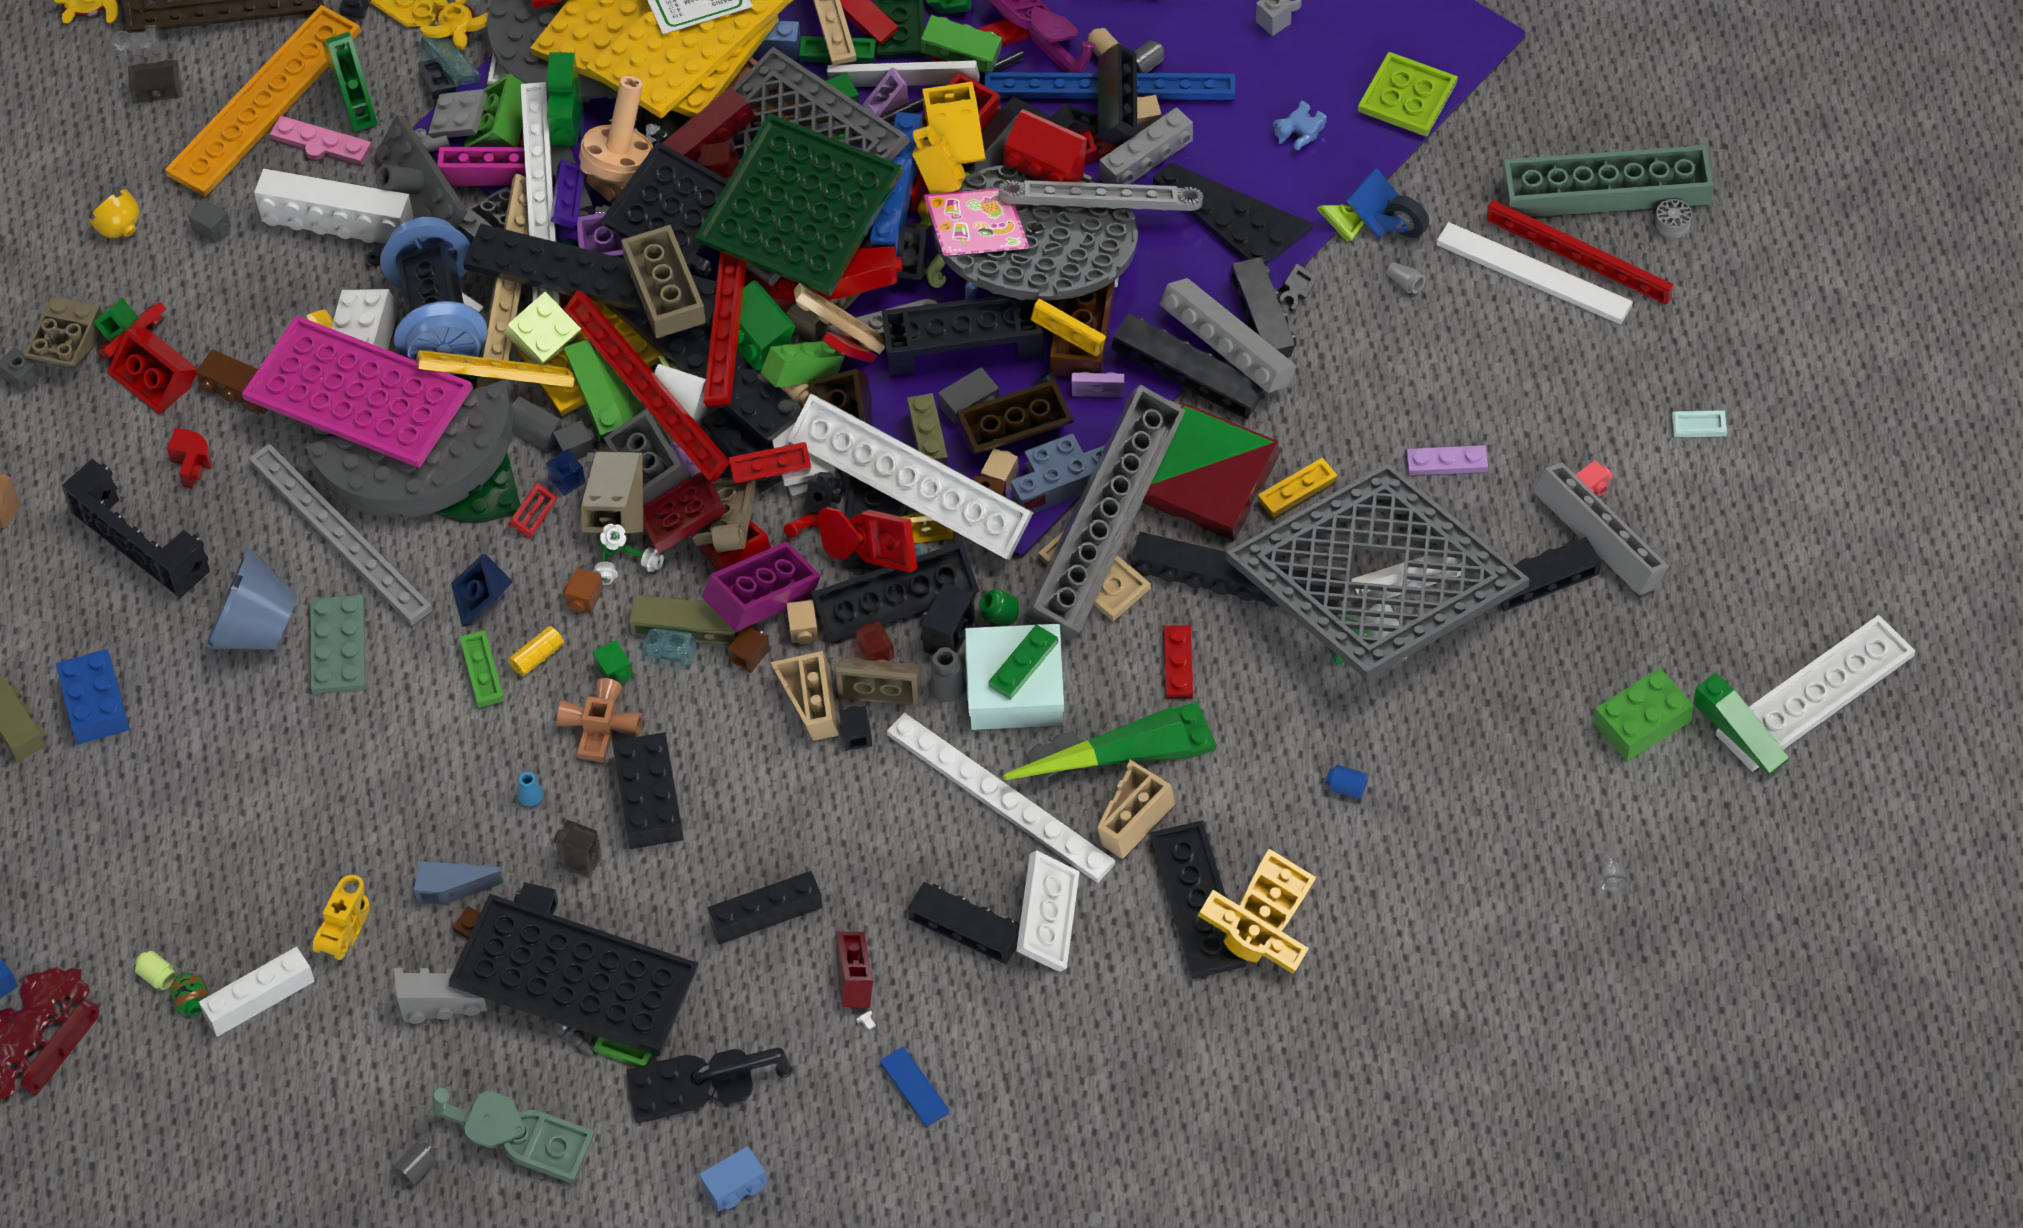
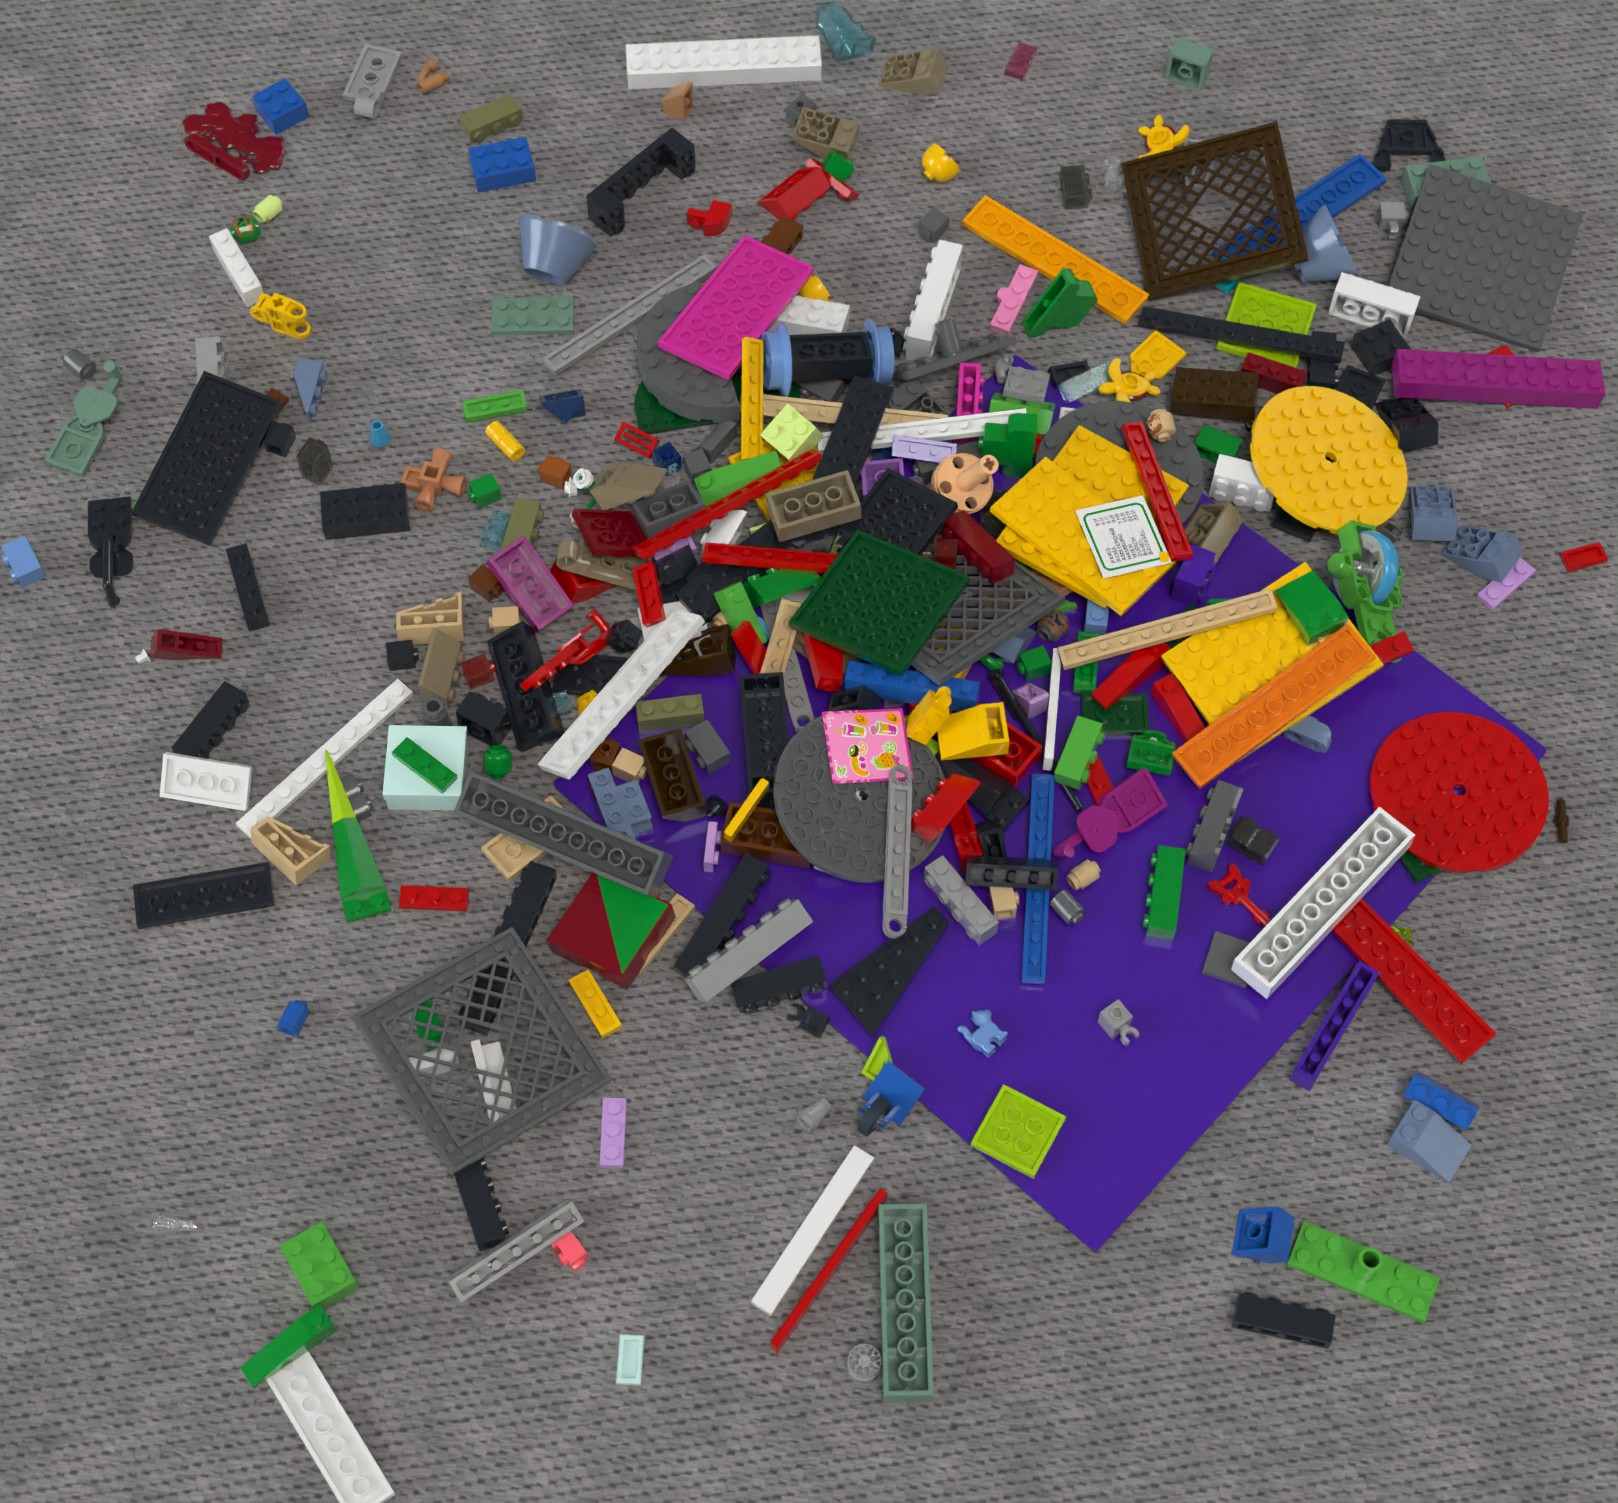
camera: 90 degrees right, 5 degrees up
(914, 1086) = (79, 686): blue tile -> none
(1264, 910) = (173, 939): yellow slope -> none

